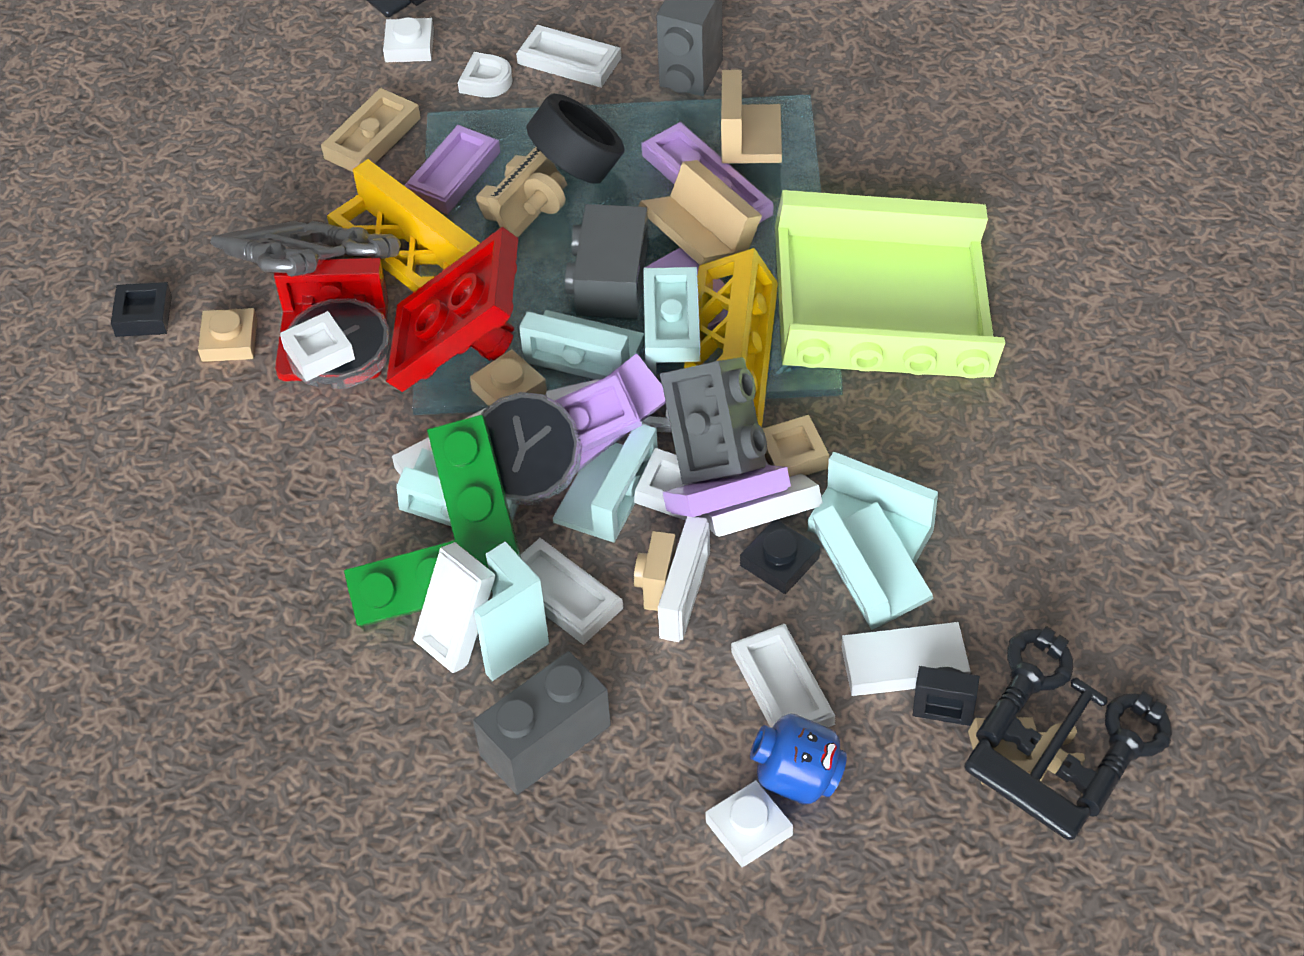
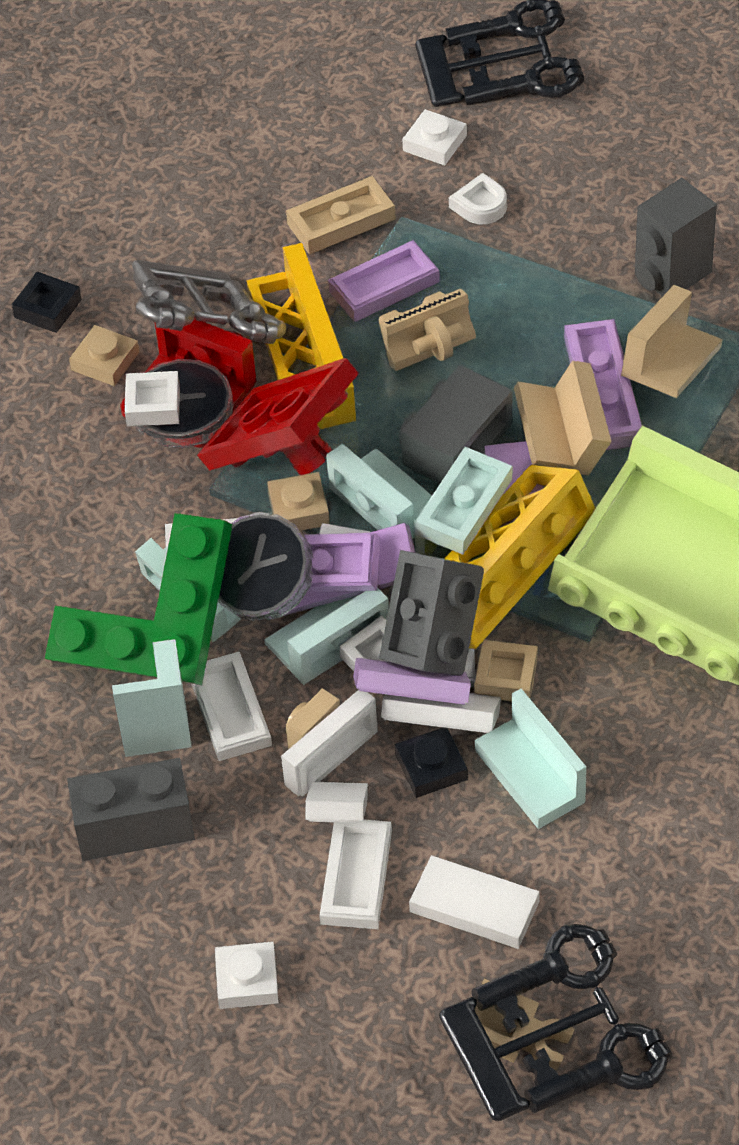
camera: 30 degrees right, 0 degrees up
(448, 616) = (122, 662): white tile -> none
(569, 56) = (569, 211): white tile -> none
(575, 138) = (480, 309): black tyre -> none
(726, 628) = (336, 802): none -> white tile
(798, 759) = (315, 940): head -> none
(872, 563) = (496, 804): light aqua panel -> none
(945, 695) = (478, 946): black plate -> none

